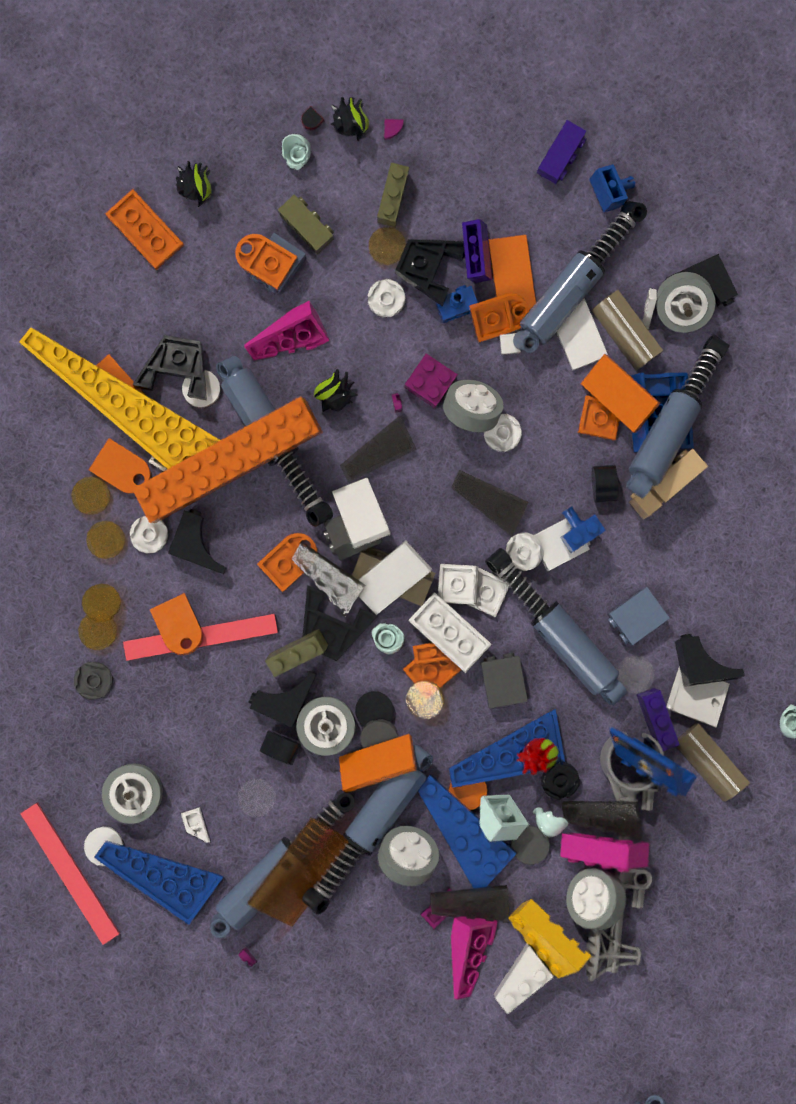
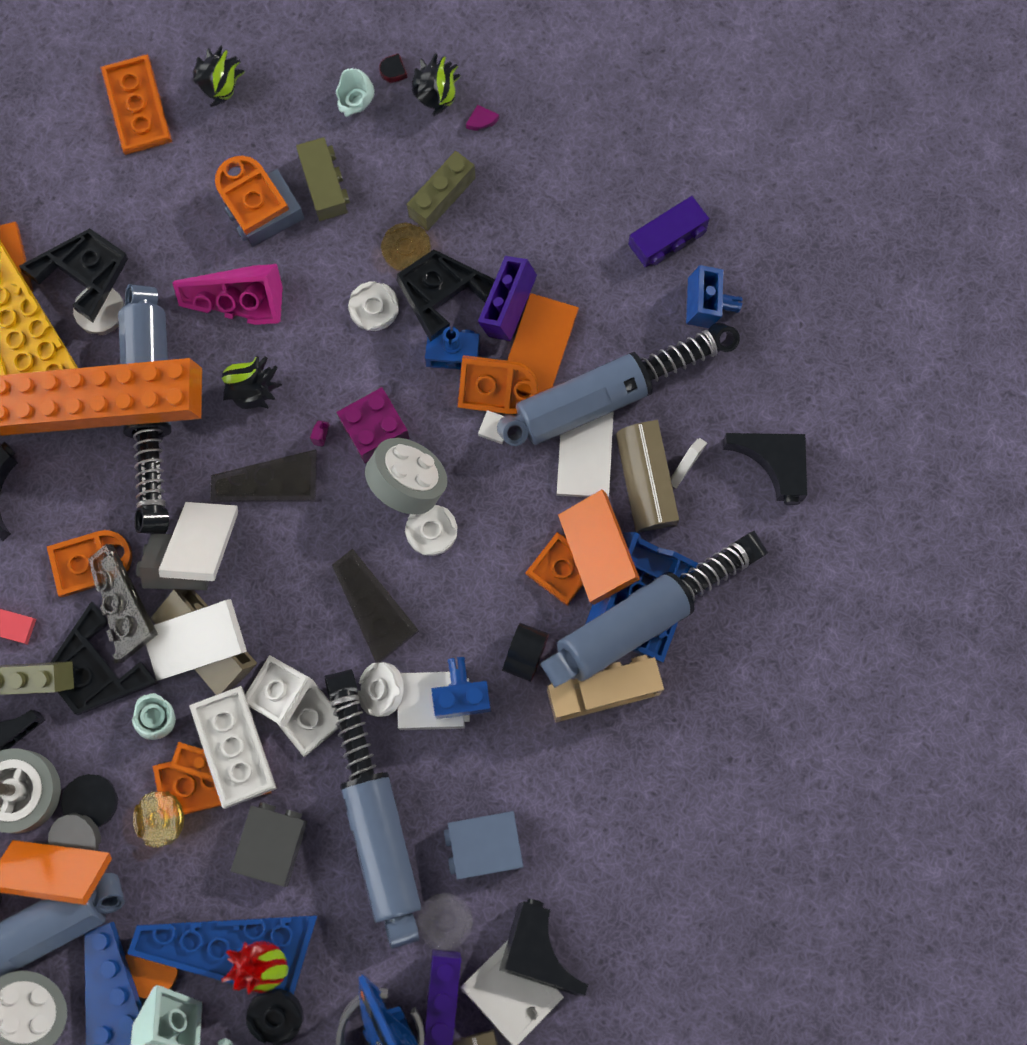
camera: 30 degrees right, 10 degrees down
(685, 302) = (734, 473): wheel -> none

